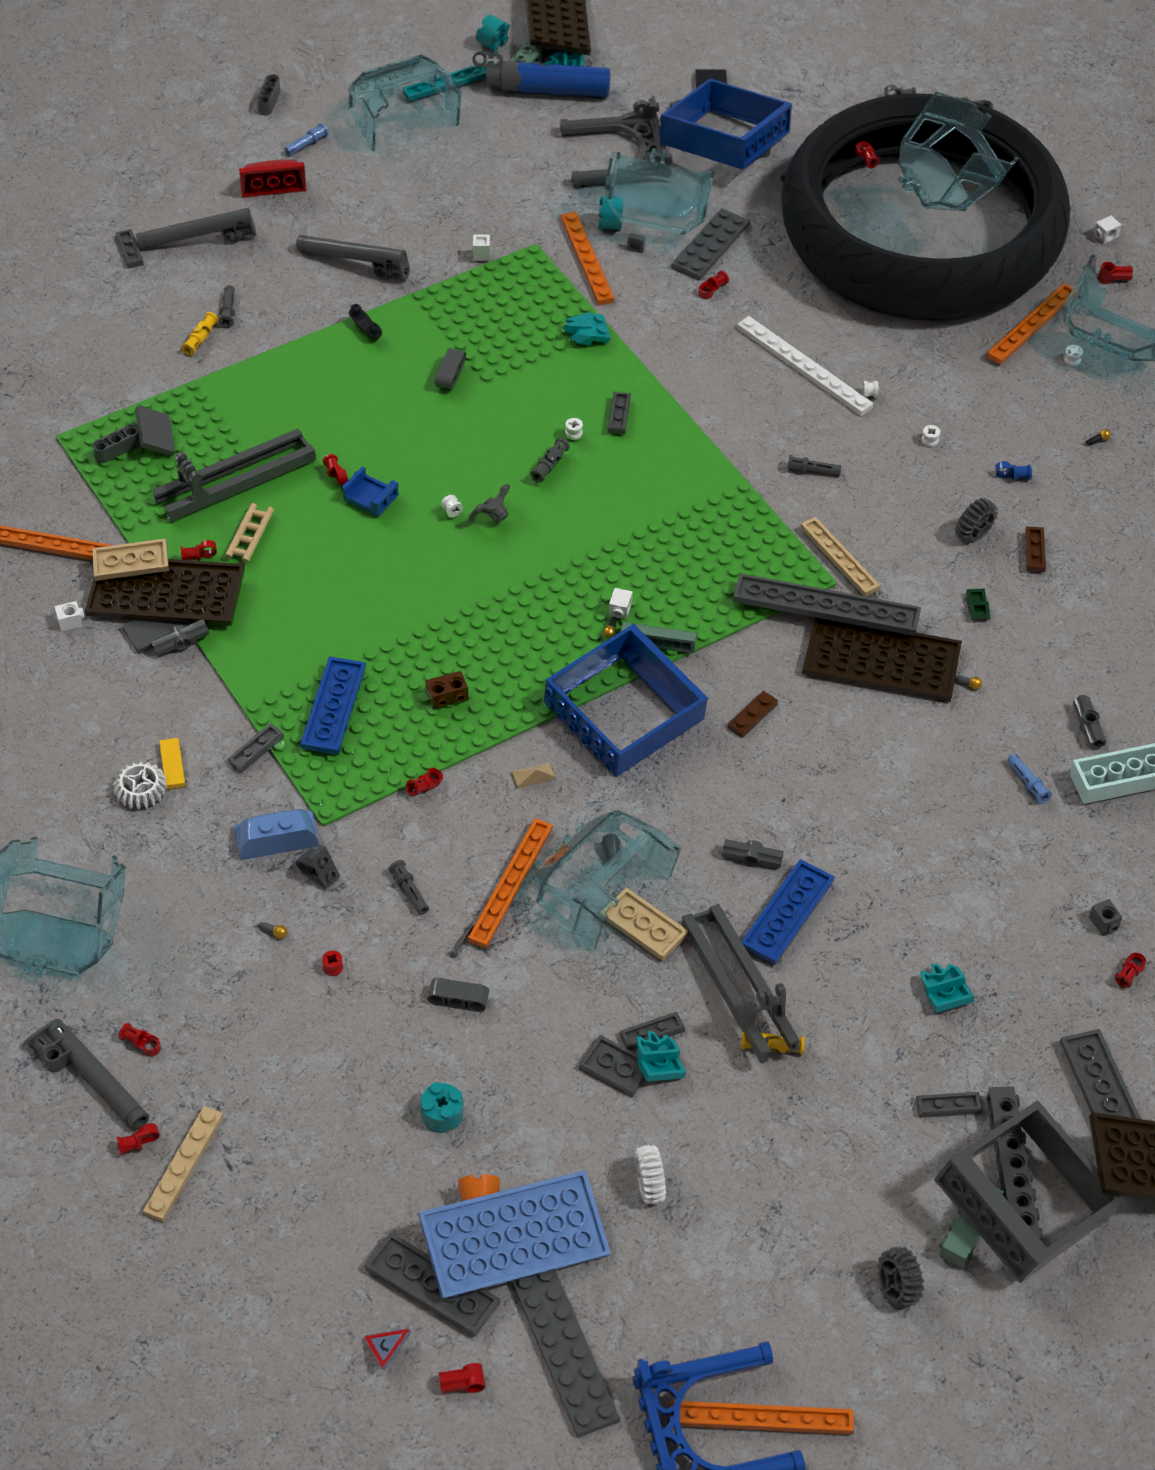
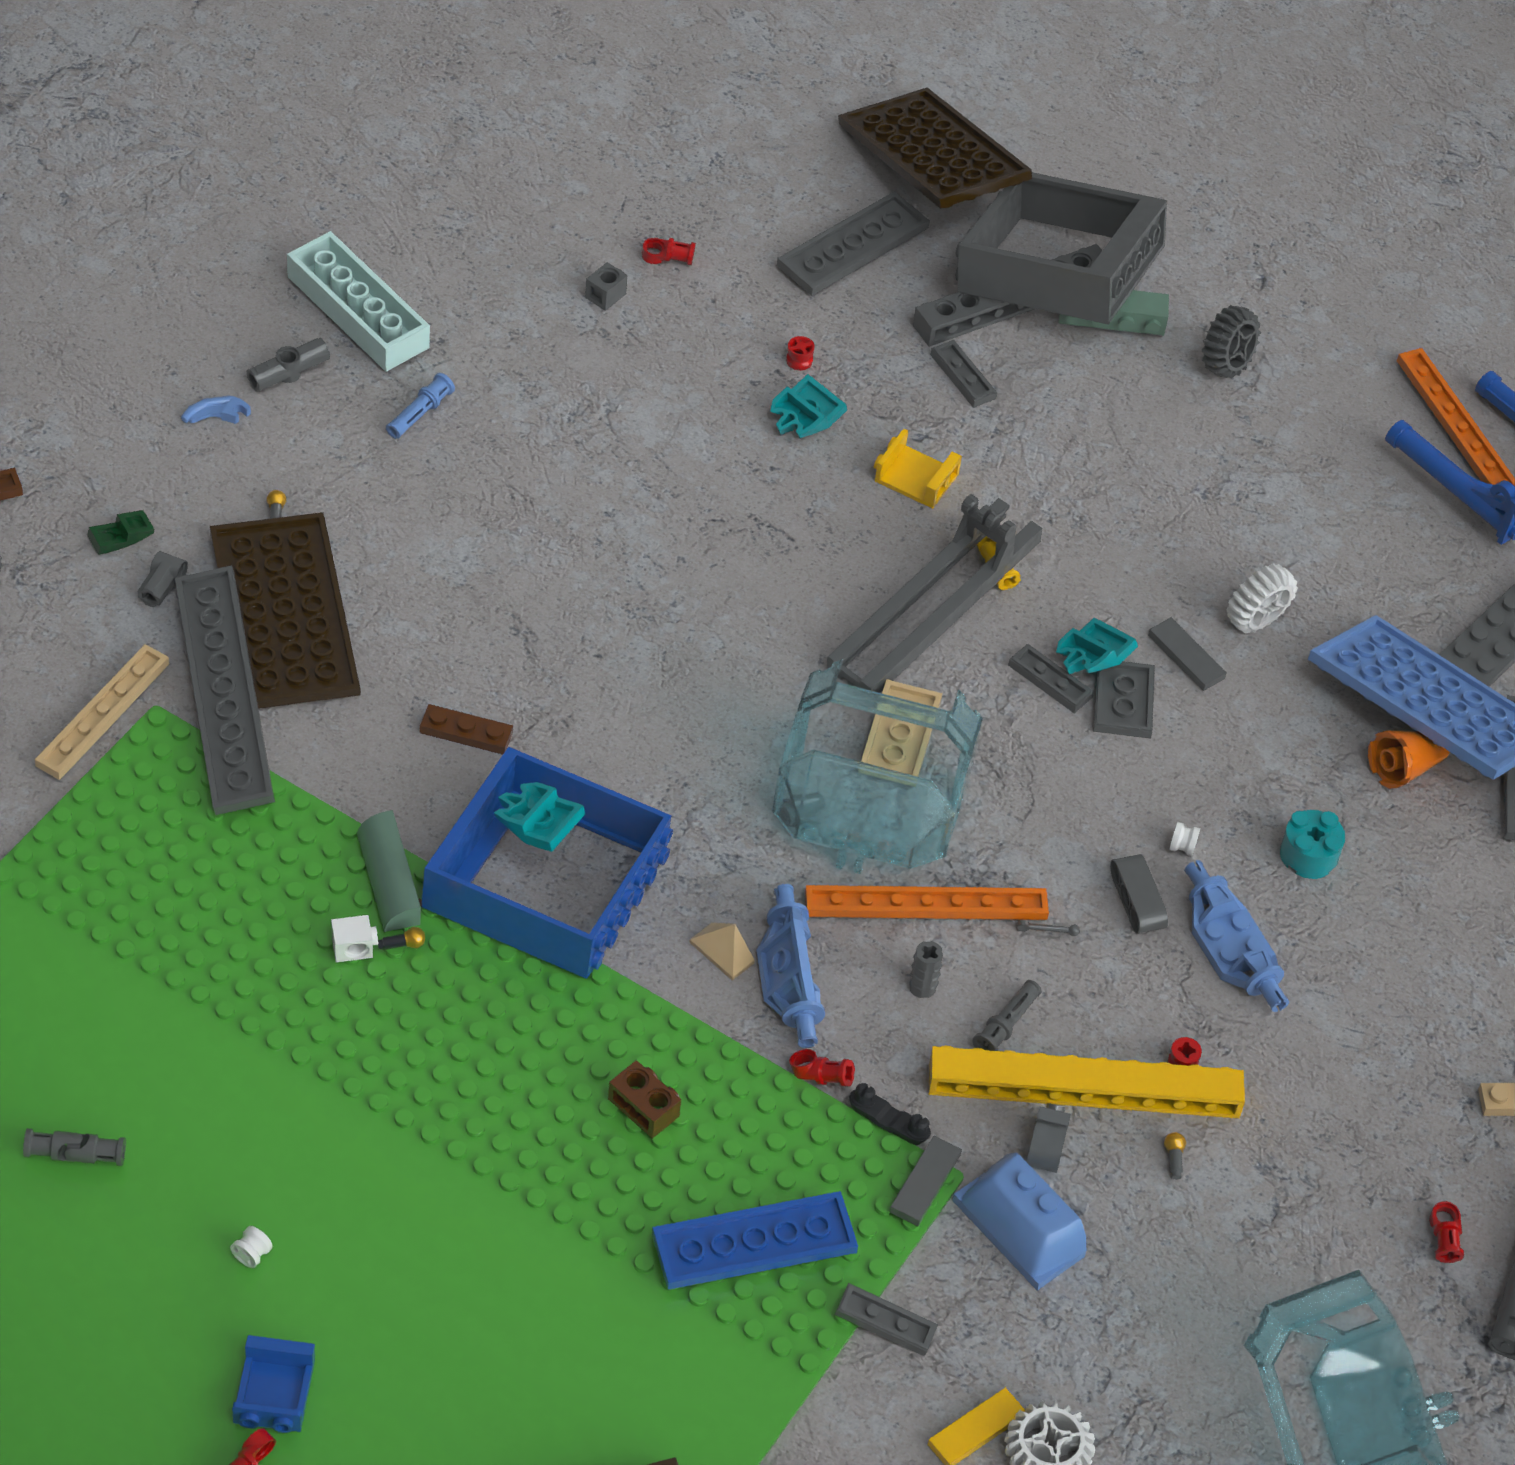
camera: 120 degrees left, 0 degrees up
(325, 797) = (925, 1181): none -> dark grey tile
(342, 905) = (1086, 1082): none -> yellow brick
(377, 801) = (906, 1126): none -> black piece
(396, 1031) = (1233, 938): none -> medium blue plate
(457, 850) = (926, 969): none -> dark grey axle
(485, 1039) = (1184, 839): none -> white wheel
(492, 785) = (786, 967): none -> medium blue plate
(493, 507) = (229, 1179): dark grey piece -> none
(634, 1121) = (1187, 653): none -> dark grey tile
(643, 684) = (539, 815): none -> teal plate
(752, 853) = (717, 653): dark grey piece -> none
(787, 912) = (786, 591): blue plate -> none
(865, 1031) = (914, 472): none -> yellow panel
(933, 613) = (161, 578): none -> dark grey piece
(1005, 1004) = (800, 353): none -> red wheel
(1067, 681) = (223, 407): none -> medium blue piece

